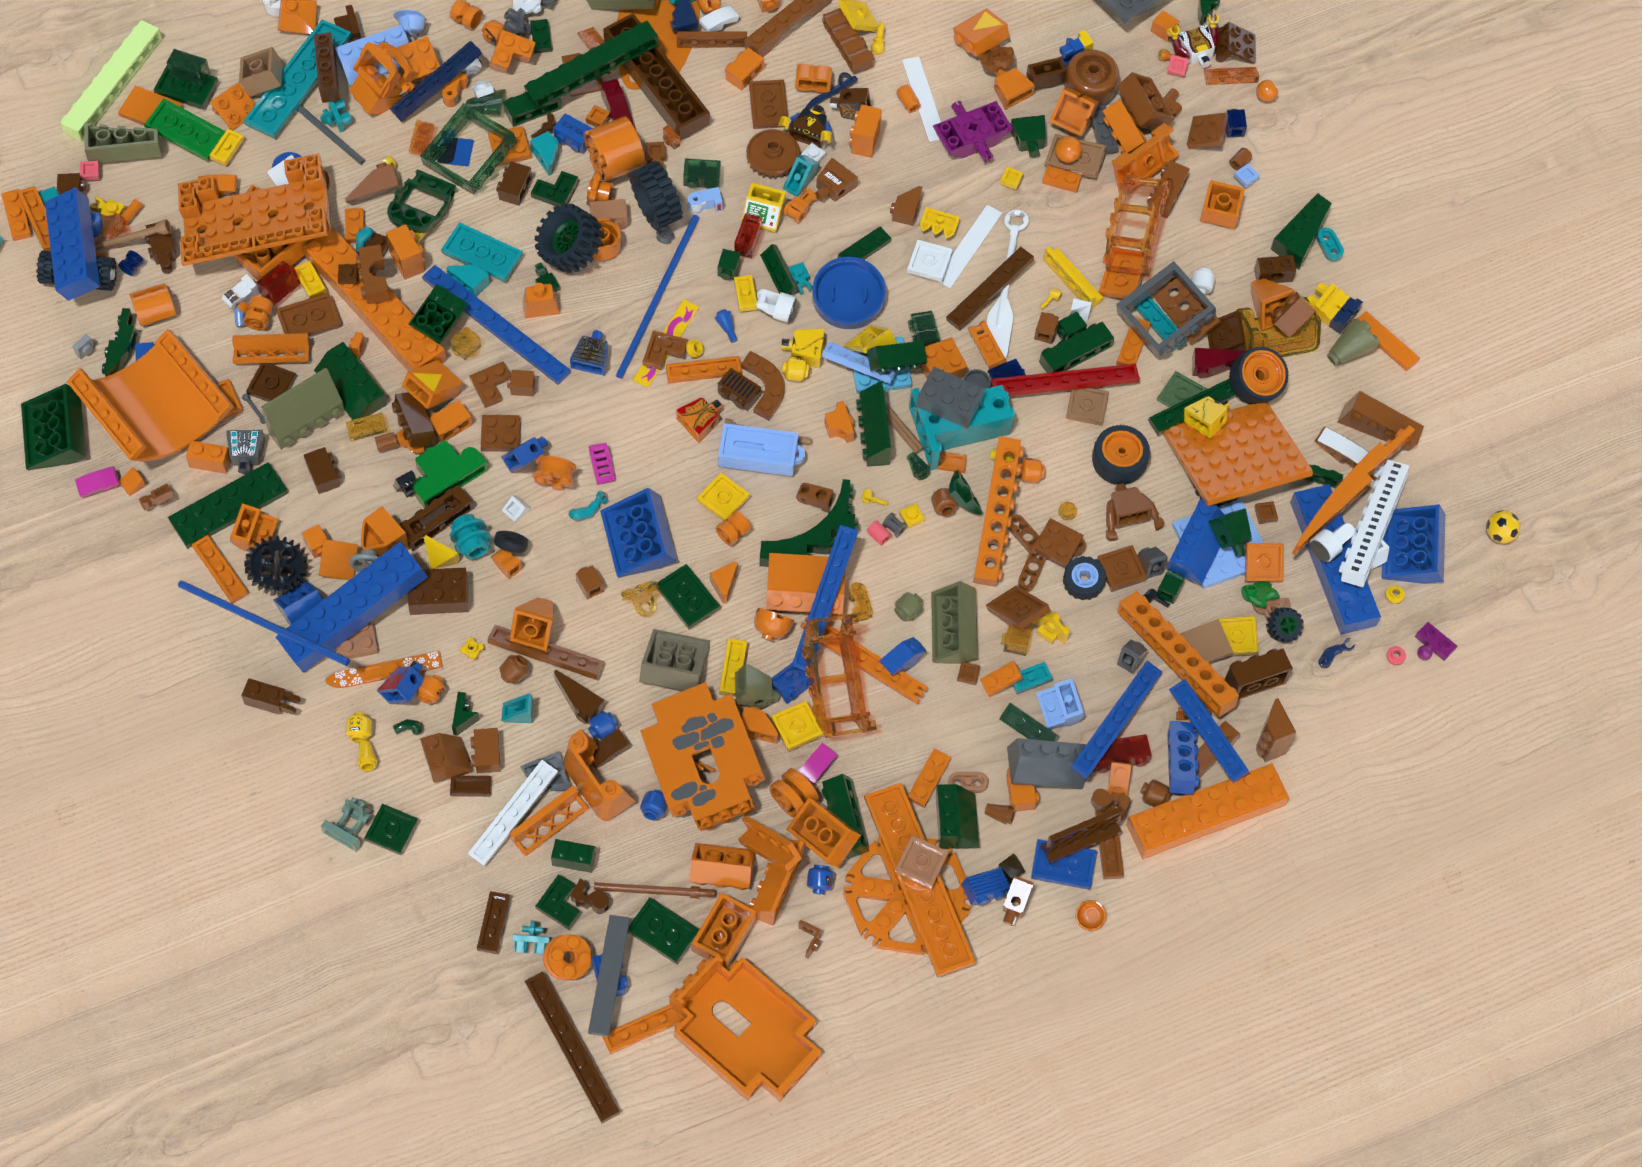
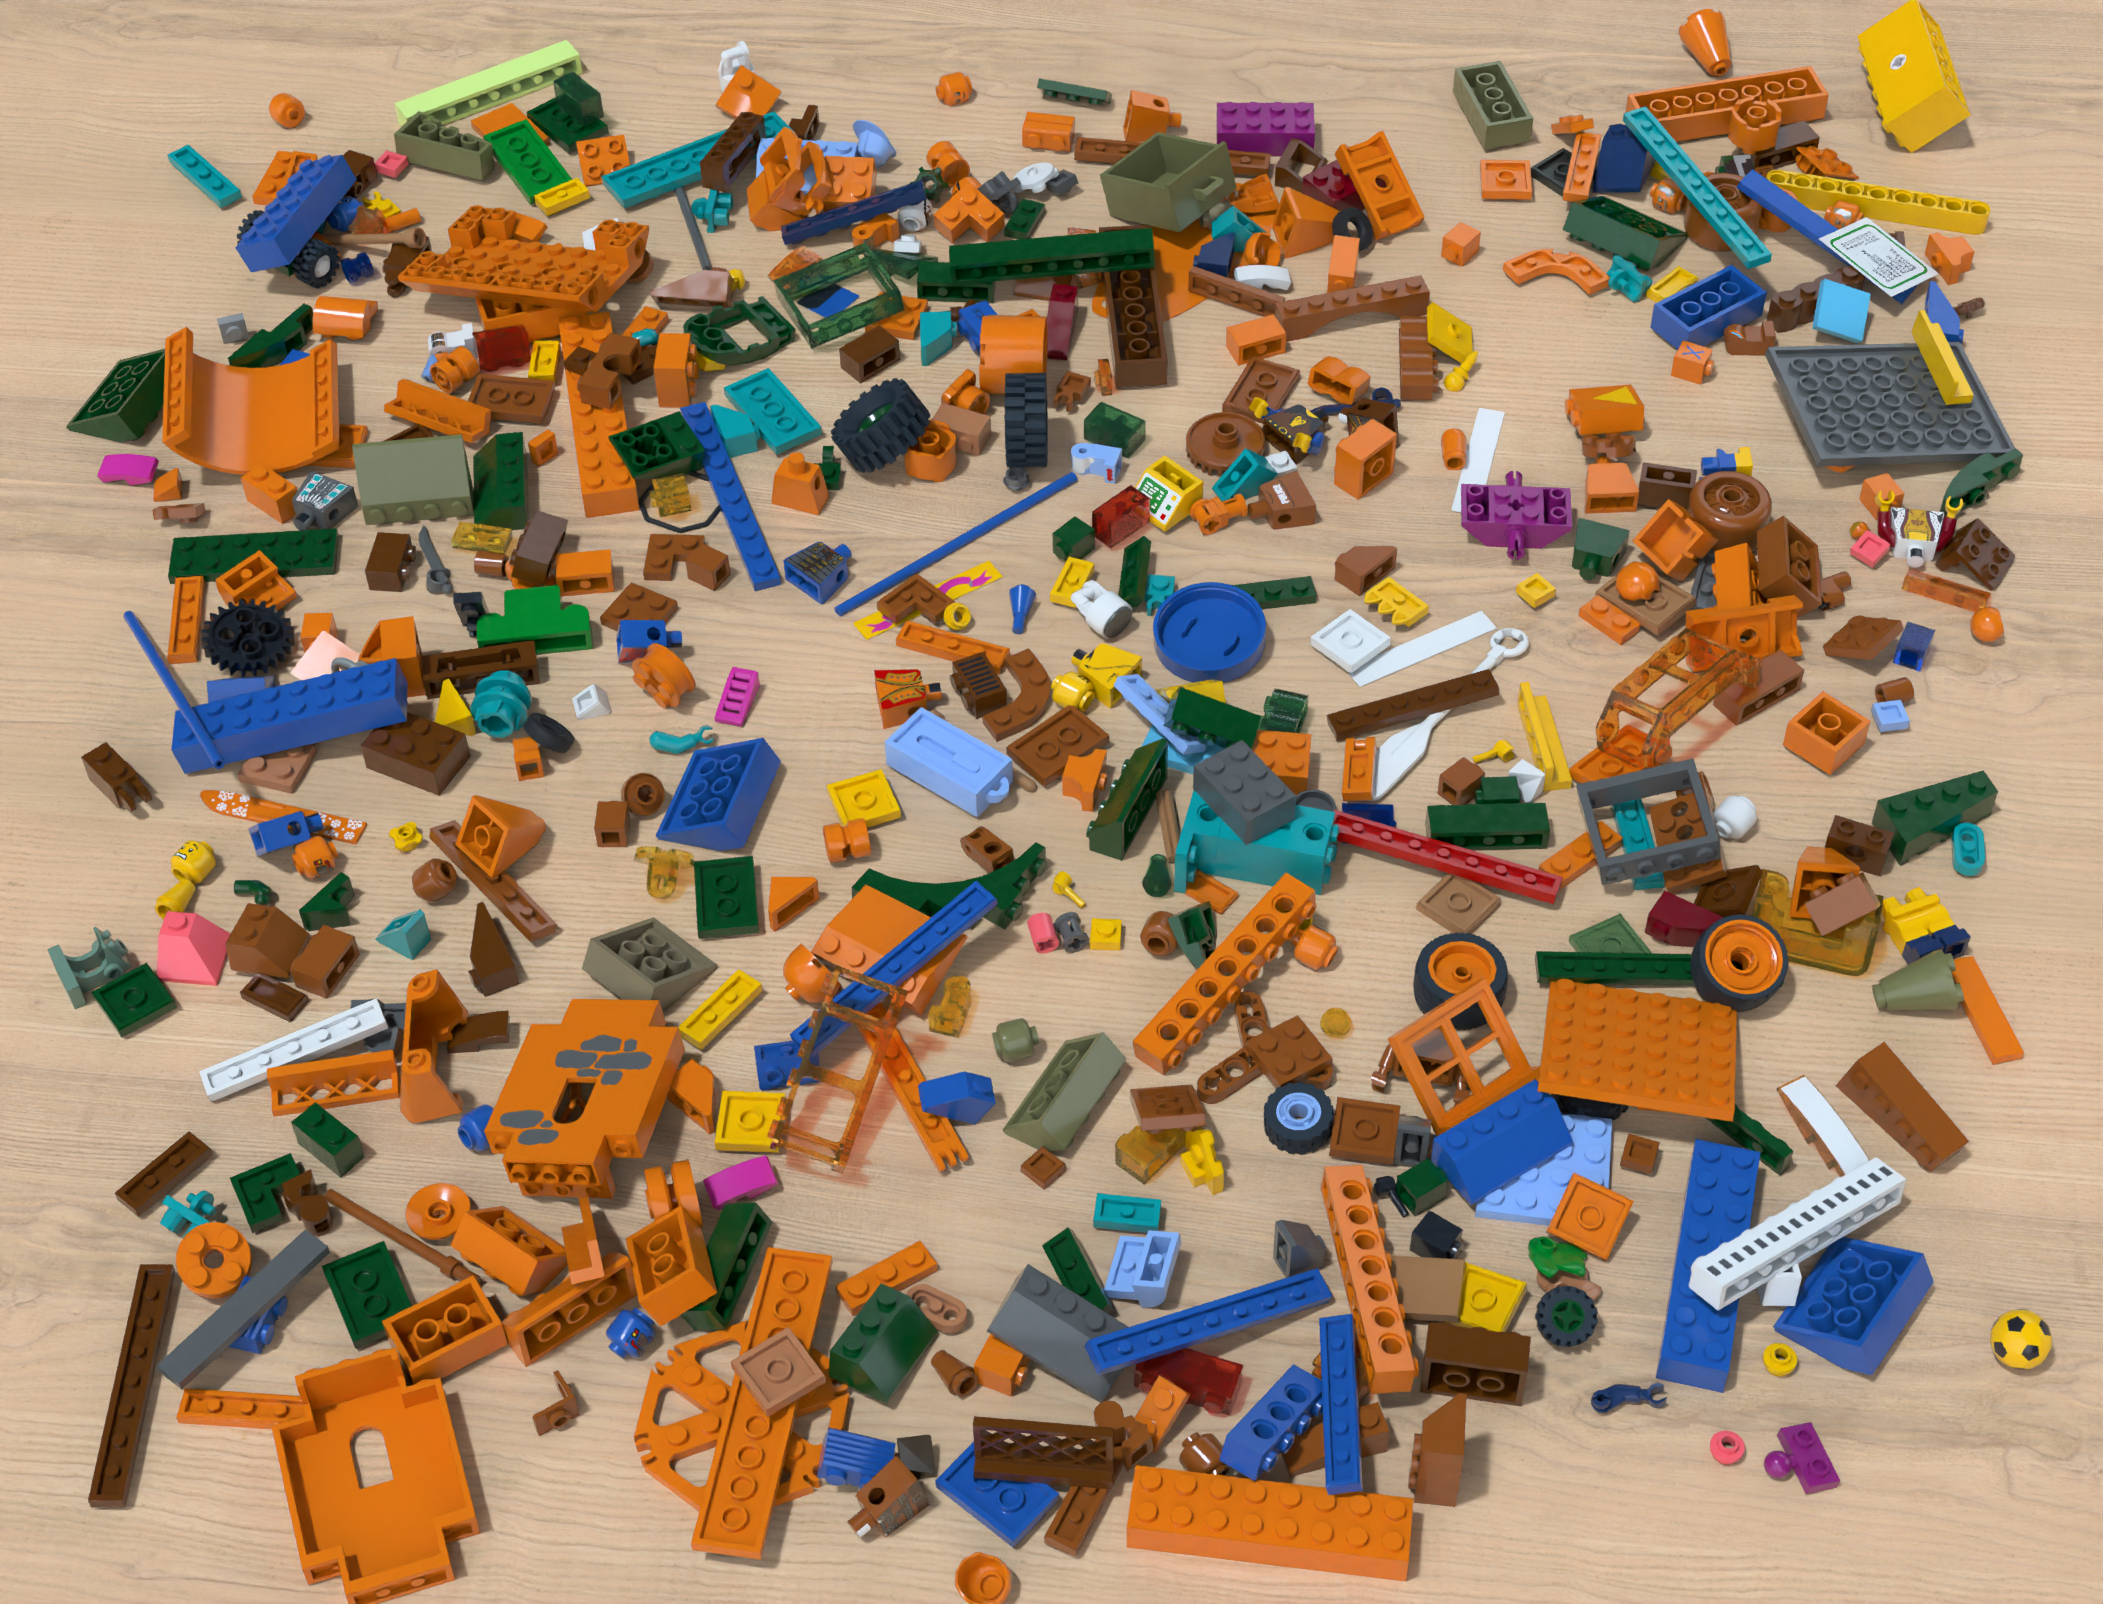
camera: 35 degrees right, 15 degrees down
(260, 71) = (657, 133): medium nougat brick -> none
(357, 463) = (437, 576): none -> dark grey sword
(402, 782) = (190, 949): none -> coral slope
(432, 384) = (592, 519): orange brick -> none
(461, 31) = (938, 186): none -> dark green rock
(473, 363) = (671, 527): none -> black piece
(555, 193) = (922, 382): dark green plate -> none
(595, 554) = (643, 794): none -> dark orange plate
(602, 725) = (492, 996): blue head -> none
(665, 856) = (436, 1201): none -> orange dish
(753, 687) = (723, 1043): olive torso -> none
(808, 407) = (1047, 747): none -> dark orange plate
(1001, 678) = (1081, 1193): orange plate -> none
(1174, 518) = (1483, 1096): none -> orange window
(1195, 613) = (1436, 1238): none -> black brick
(1207, 415) = (1624, 981): yellow torso -> none
(1232, 530) = (1559, 1143): dark green torso -> none
(1328, 544) = (1695, 1224): white piece -> none
(1353, 485) = (1787, 1165): orange slope -> none

